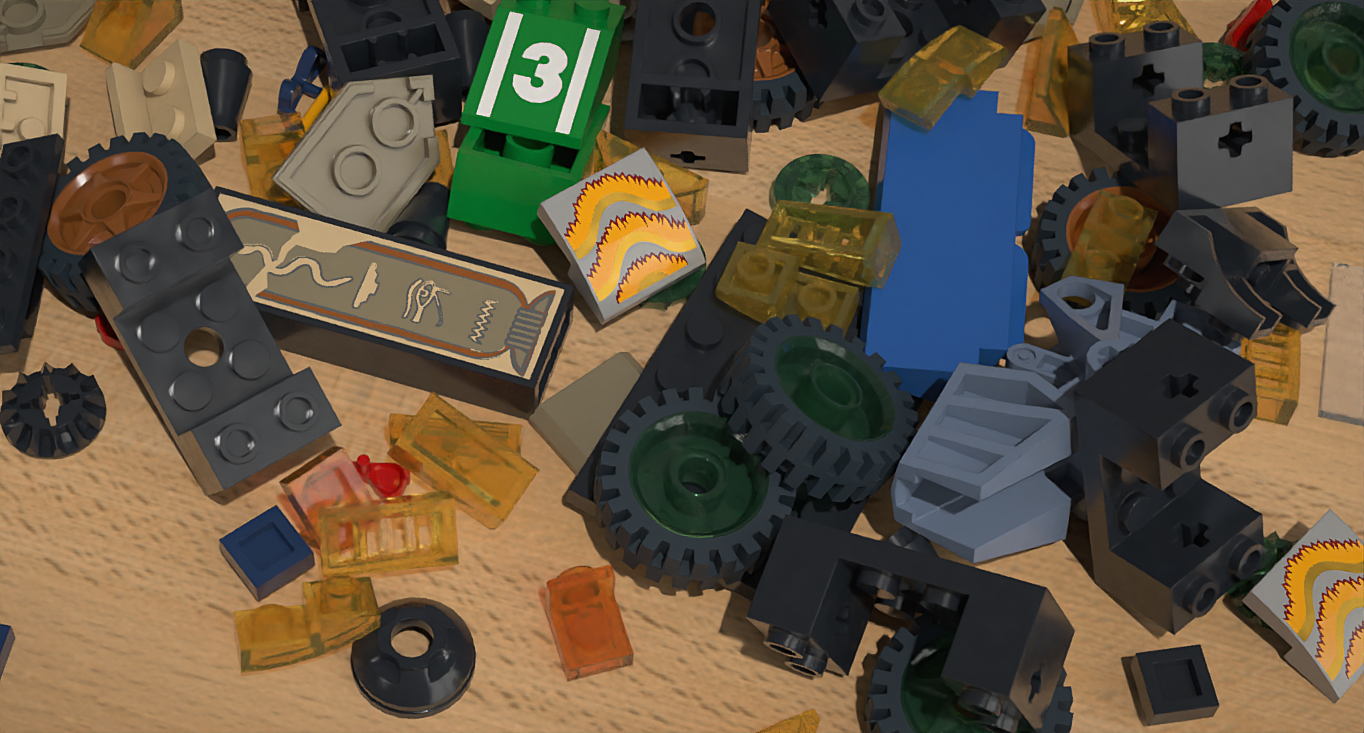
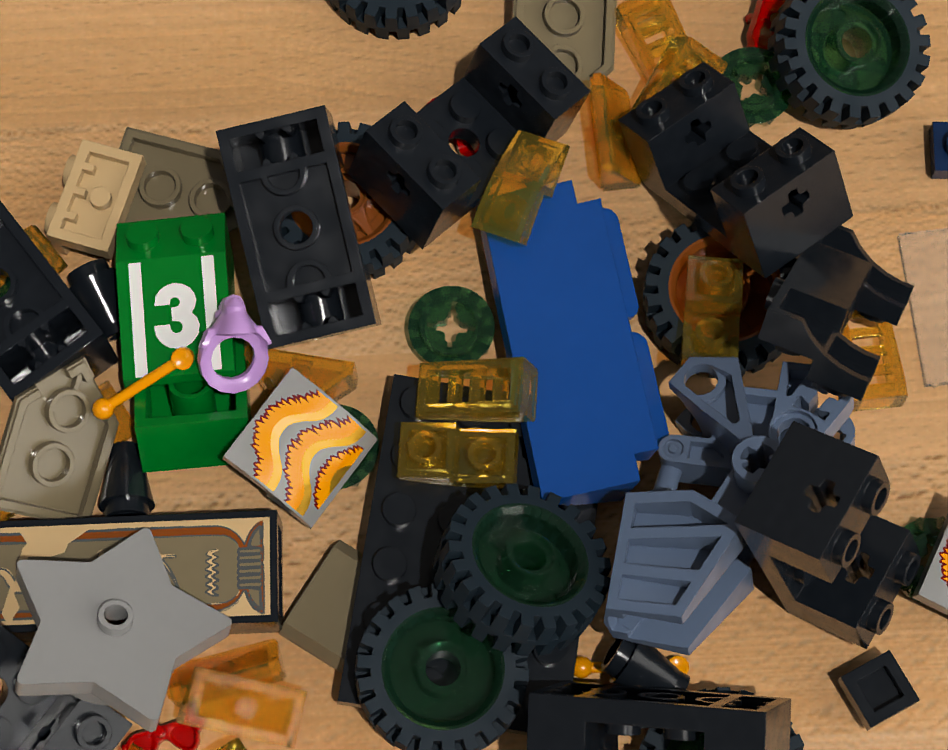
camera: 10 degrees left, 15 degrees up
(359, 317) = (112, 629): none -> light grey plate
(531, 107) = (181, 359): none -> light orange hinge
(602, 86) = (234, 322): none -> lavender piece

